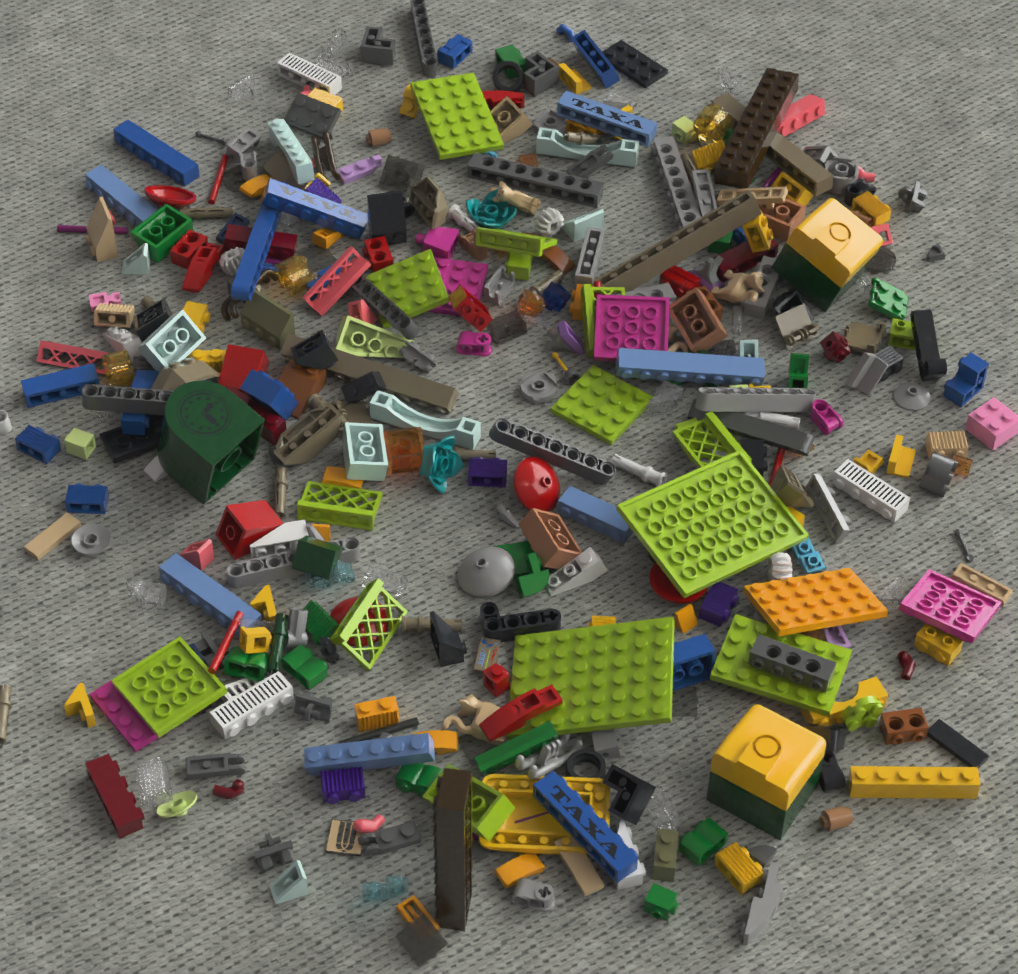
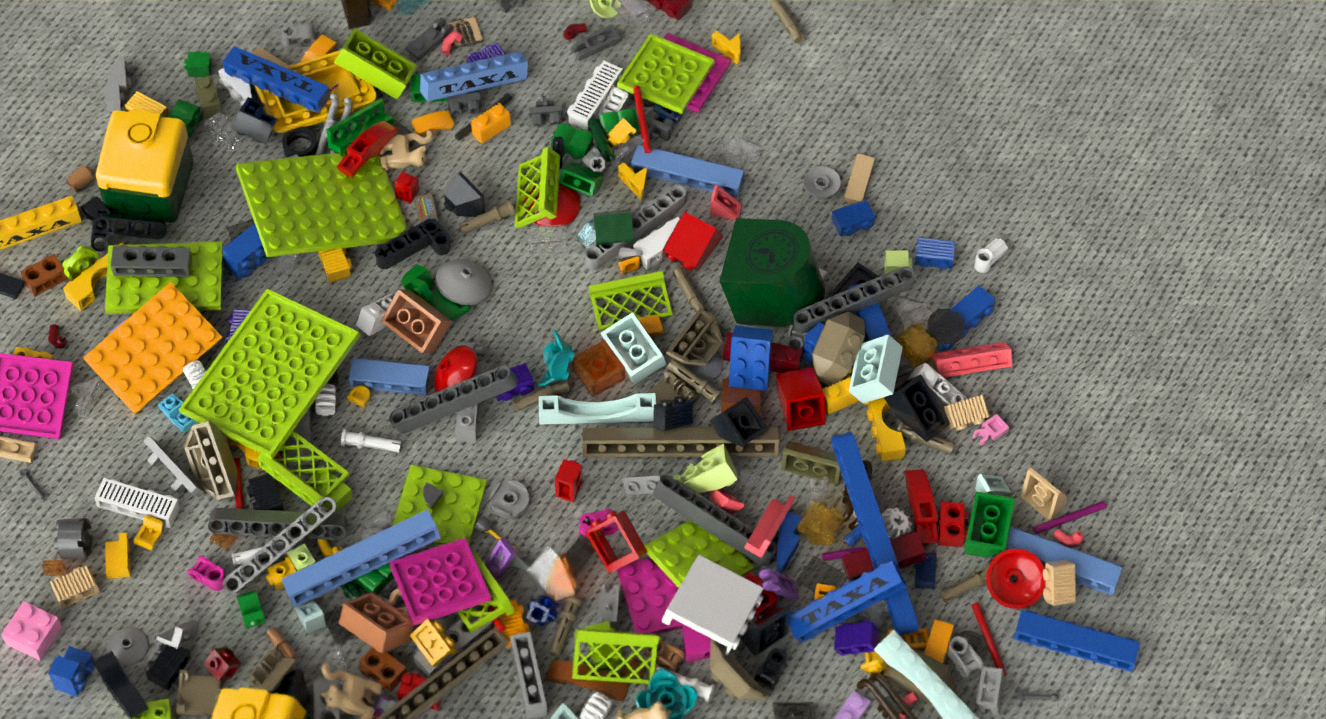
camera: 155 degrees right, 10 degrees up
(81, 371) = (945, 326): none -> clear smoke tile
(140, 177) = (1059, 582): none -> tan brick
(284, 291) = (816, 493): none -> clear hinge
(363, 238) = (779, 584): none -> medium lavender hinge
(423, 229) = (715, 602): none -> white panel
(482, 371) = (568, 480): none -> red brick
(605, 403) = (431, 495): none -> dark grey tile
(655, 287) = (433, 641): none -> yellow bracket
(780, 349) = (281, 644): none -> medium nougat axle

